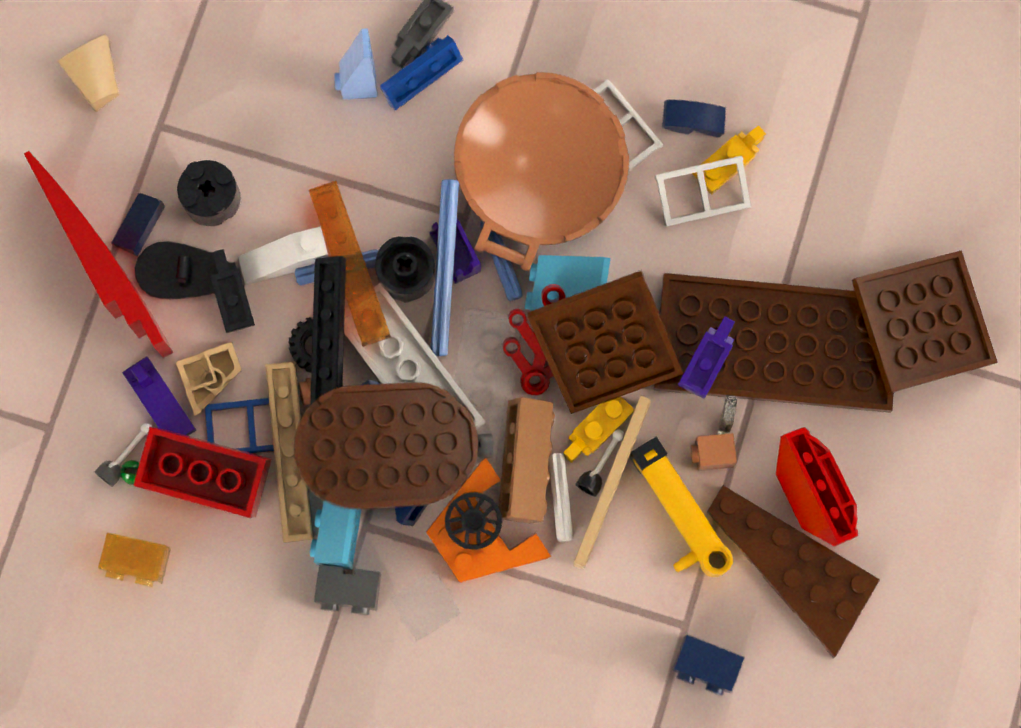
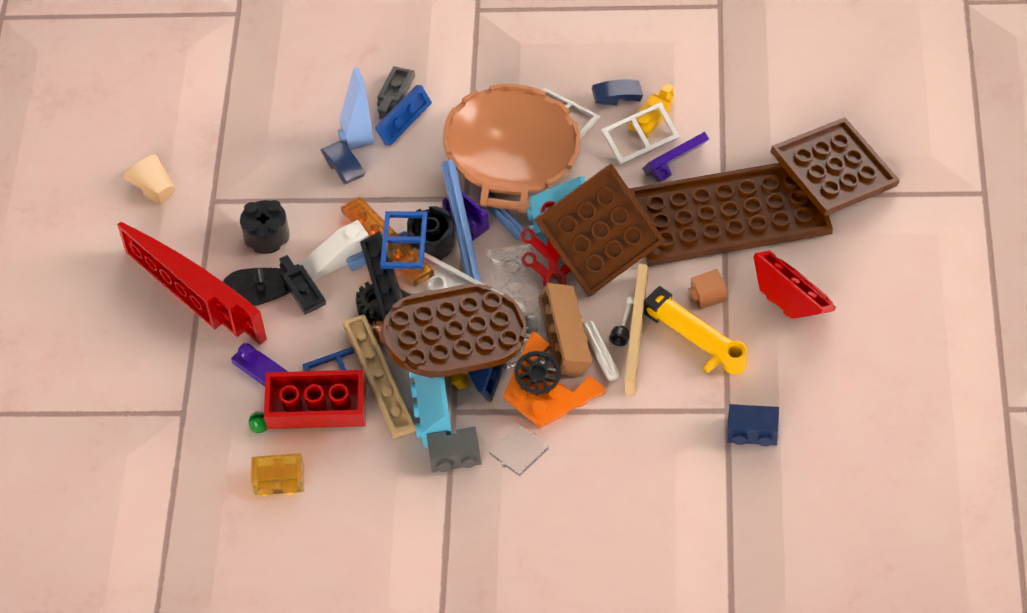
camera: 10 degrees left, 25 degrees down
(110, 470) = (240, 425): hinge -> none
(138, 223) = (217, 258): dark blue slope -> none
(208, 374) = (299, 341): tan slope -> none
(329, 121) = (344, 162): none -> dark blue slope
(366, 280) = (392, 239): none -> blue window
(598, 427) = (613, 299): yellow hinge -> none
(708, 359) = (681, 228): dark purple hinge -> none
(711, 247) = (659, 166): none -> dark purple hinge
(727, 415) = (709, 261): clear smoke tile -> none
(808, 576) = (804, 350): reddish brown wing -> none

